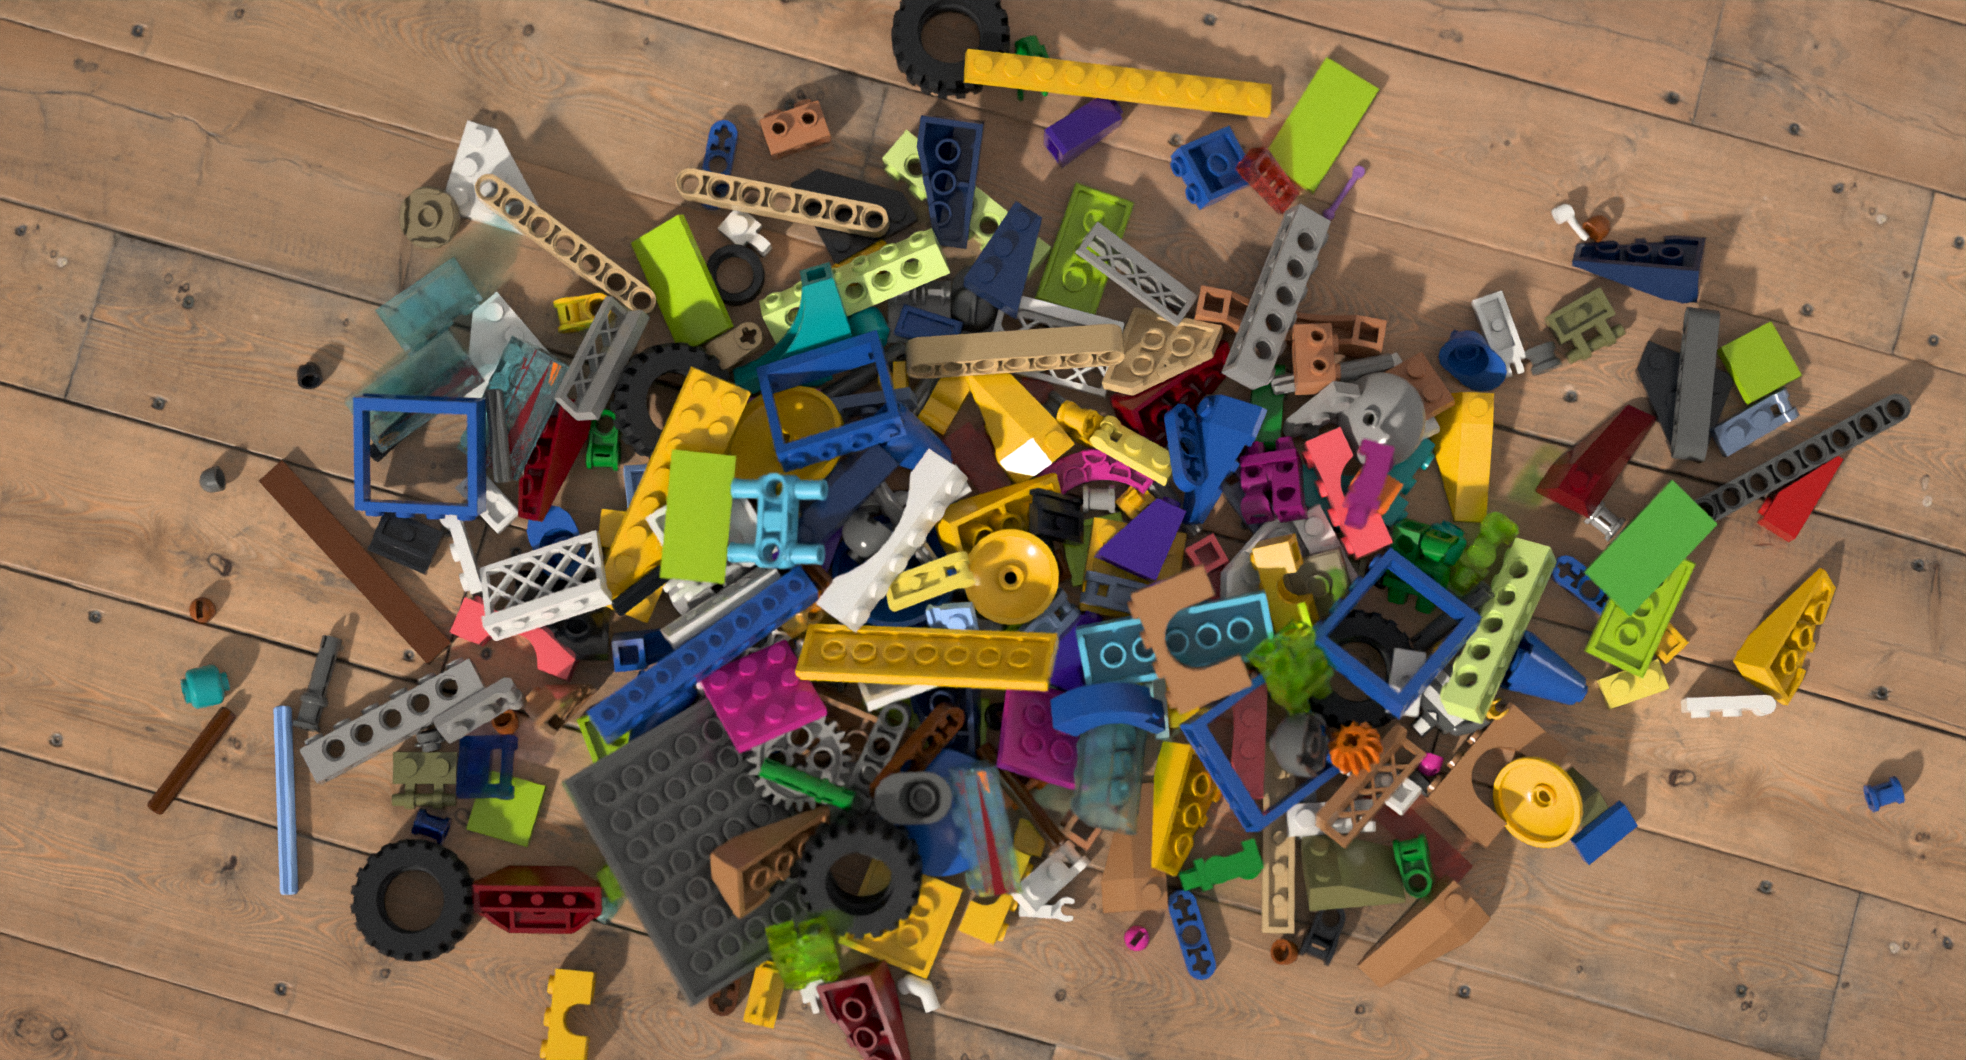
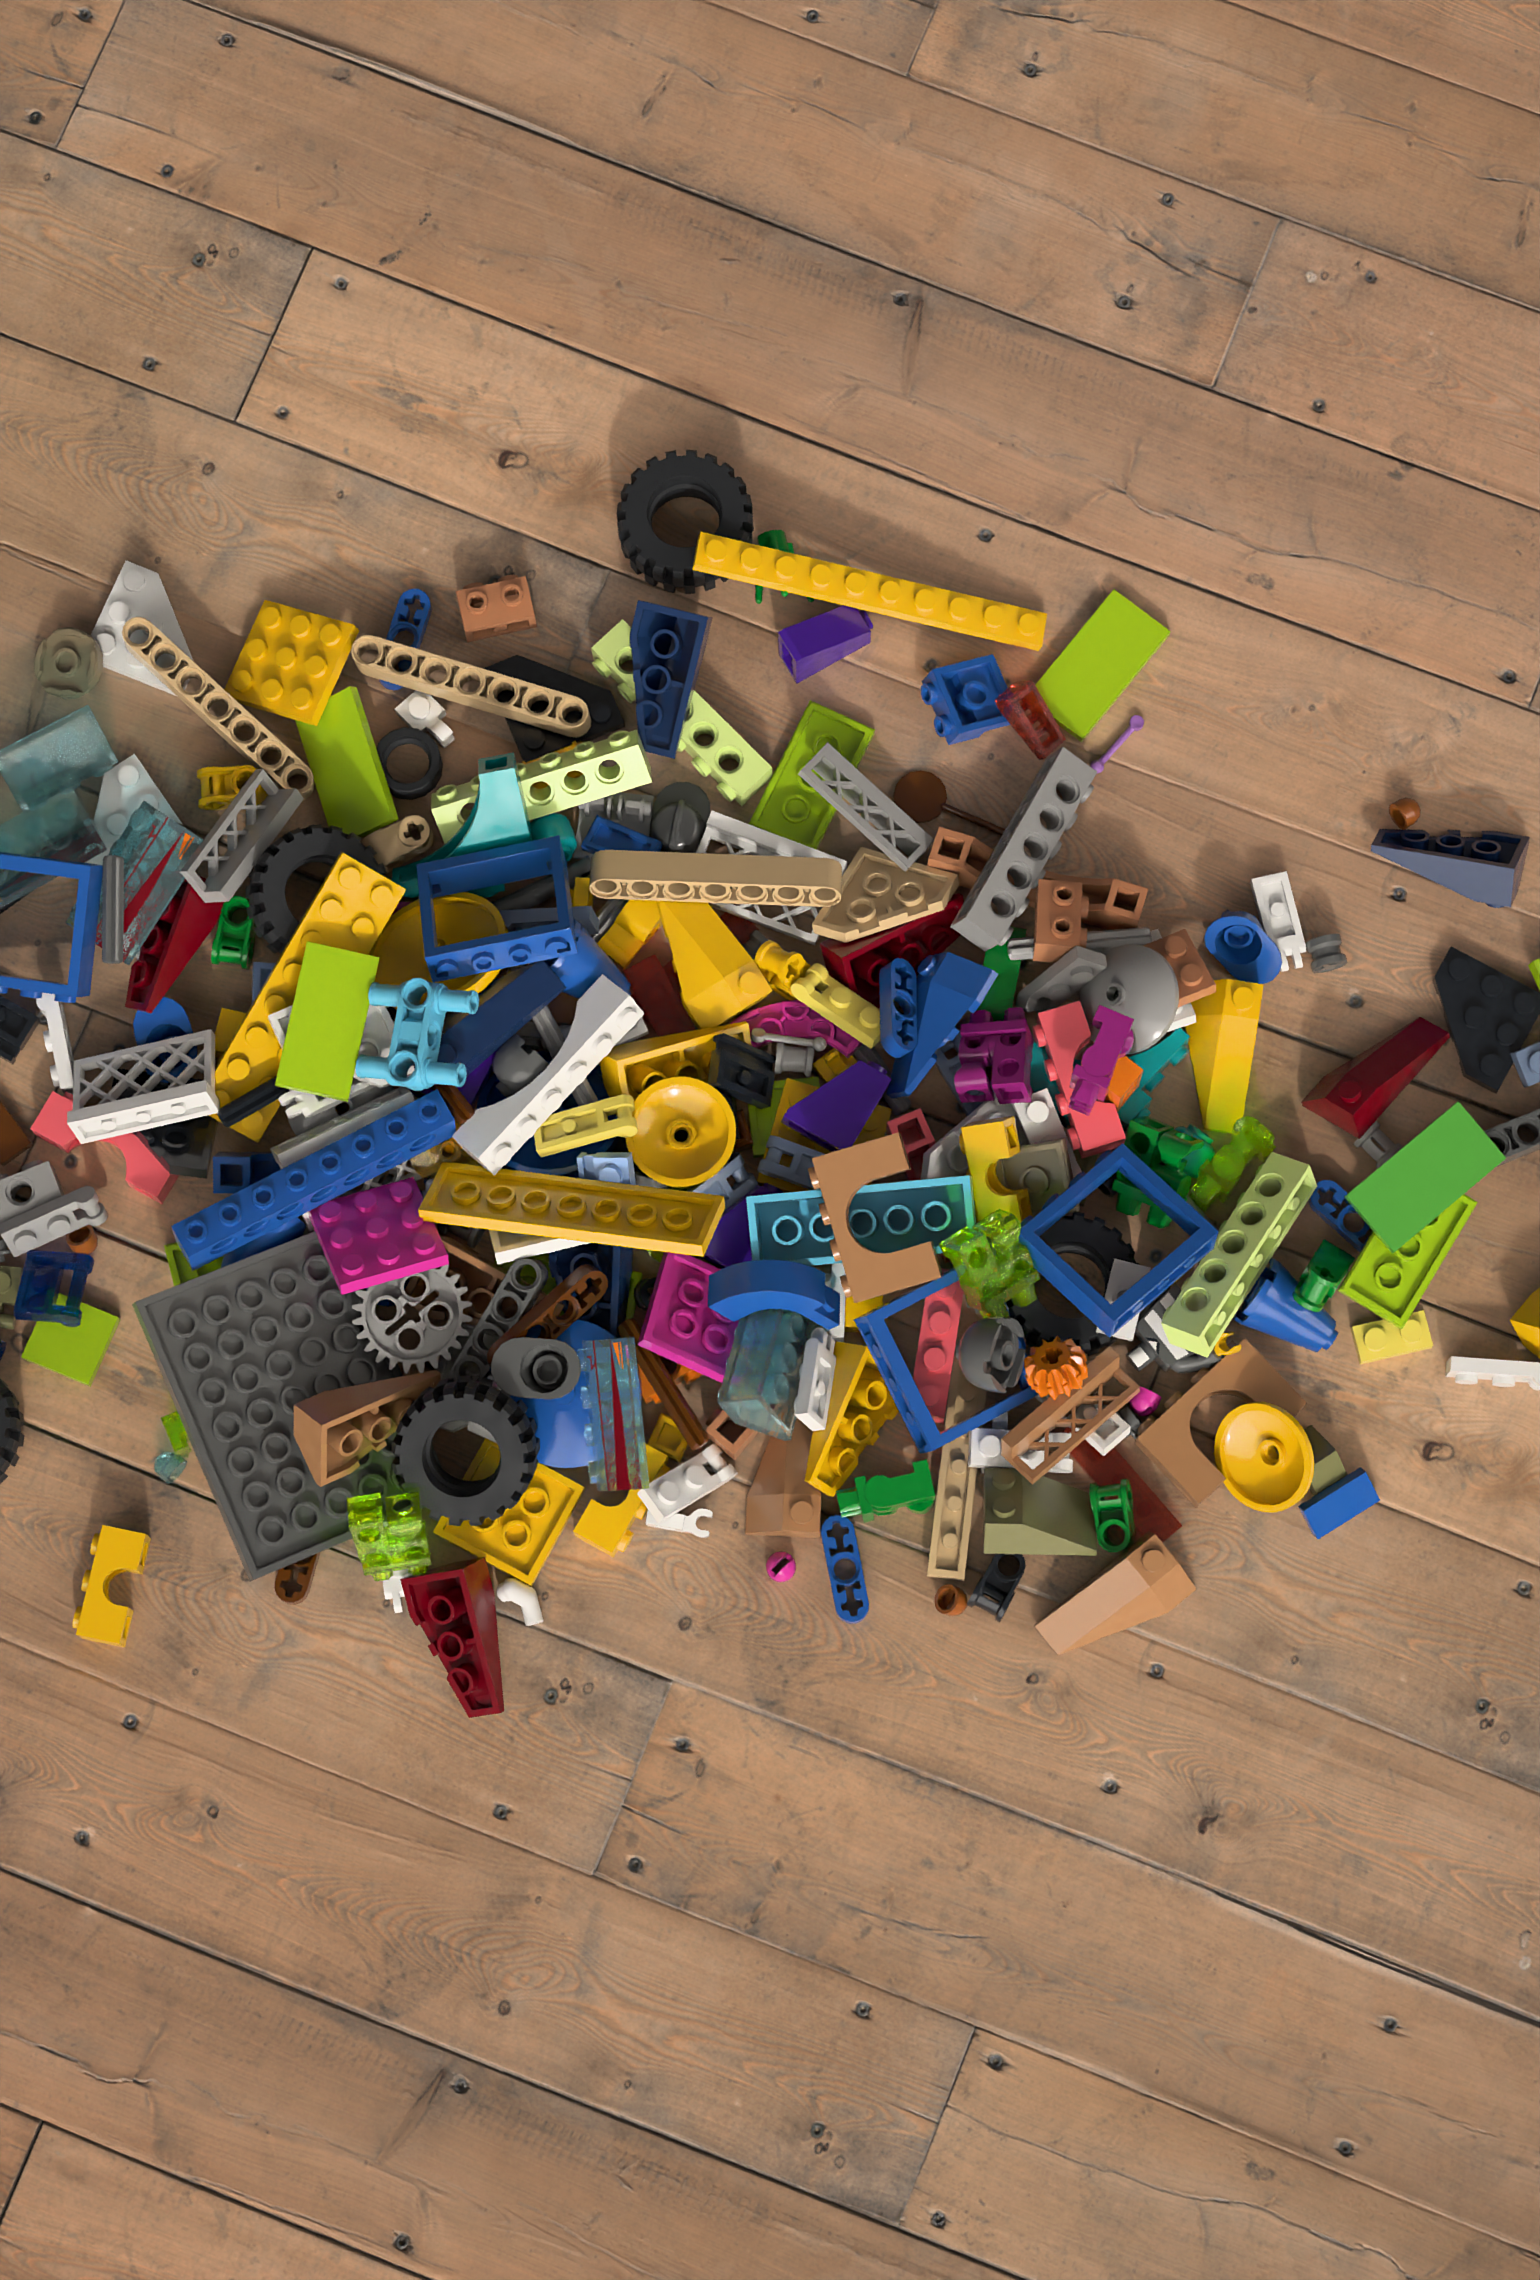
camera: 10 degrees right, 5 degrees down
(499, 509) = (105, 998): white plate -> none
(538, 899) = (92, 1444): dark red wedge -> none
(556, 704) = (143, 1224): medium nougat wedge -> none
(623, 197) = (291, 662): none -> yellow plate
(764, 996) = (340, 1585): yellow hinge -> none
(812, 786) = (422, 1343): green pin -> none
(1005, 261) = (716, 775): dark blue wedge -> none
(1066, 482) = (759, 1035): none -> light grey hinge
(1151, 779) = (816, 1380): none -> white hinge
(1182, 258) = (925, 797): none -> reddish brown piece
(1444, 623) = (1215, 1214): dark grey pin -> none
(1566, 213) = (1370, 792): white hand -> none
(1570, 641) = (1322, 1276): none -> green piece
(1580, 317) = (1375, 911): olive plate -> none
(1670, 644) = (1438, 1295): yellow tile -> none
(1695, 384) = (1498, 999): dark grey beam -> none

